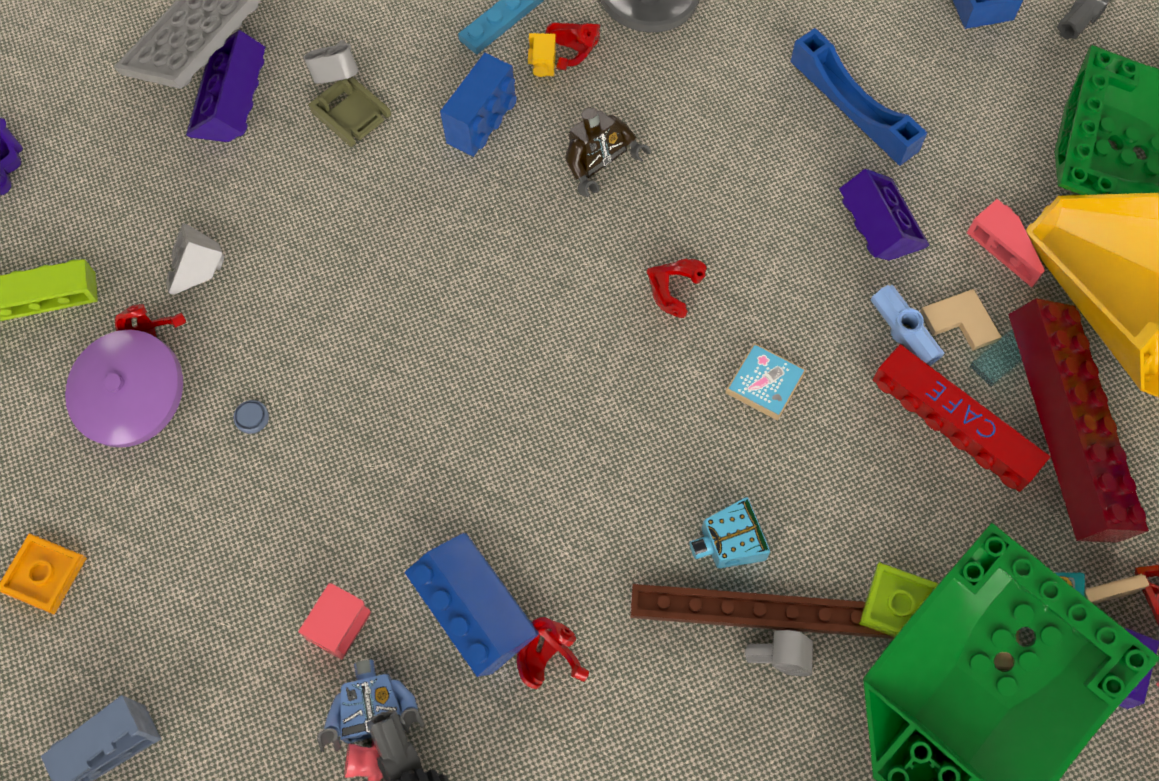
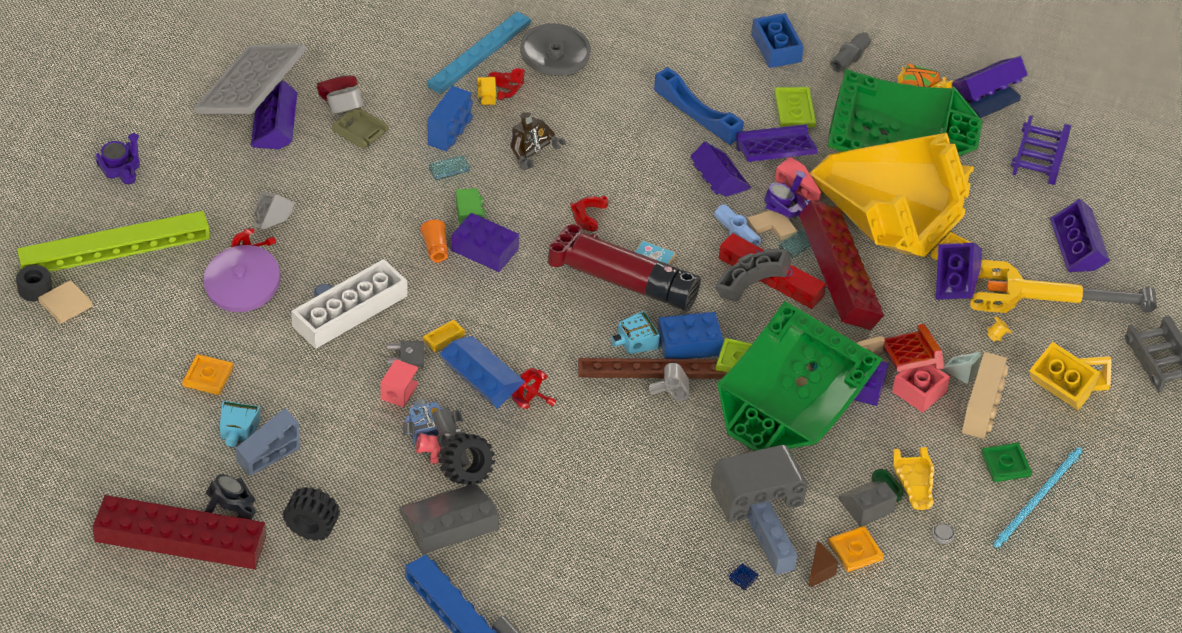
camera: 10 degrees left, 20 degrees down
(62, 688) = (238, 422): none -> medium azure torso
(277, 452) = (349, 303): none -> white brick
(325, 35) = (335, 84): none -> dark red piece
(365, 554) = (411, 352): none -> dark grey piece
(423, 515) = (443, 335): none -> yellow tile
(431, 329) = (435, 239): none -> orange plant
(472, 188) = (449, 167): none -> clear light blue tile
(491, 268) = (468, 202): none -> bright green brick
(507, 337) = (485, 242): none -> dark purple brick
(719, 403) = (624, 267): none -> dark red piece
(820, 548) = (690, 336): none -> blue brick
(931, 425) = (752, 269): none -> dark grey brick
(974, 159) = (769, 139): none -> dark purple fence
(981, 271) = (781, 196): none -> dark purple piece
(1001, 101) = (794, 106): none -> lime tile

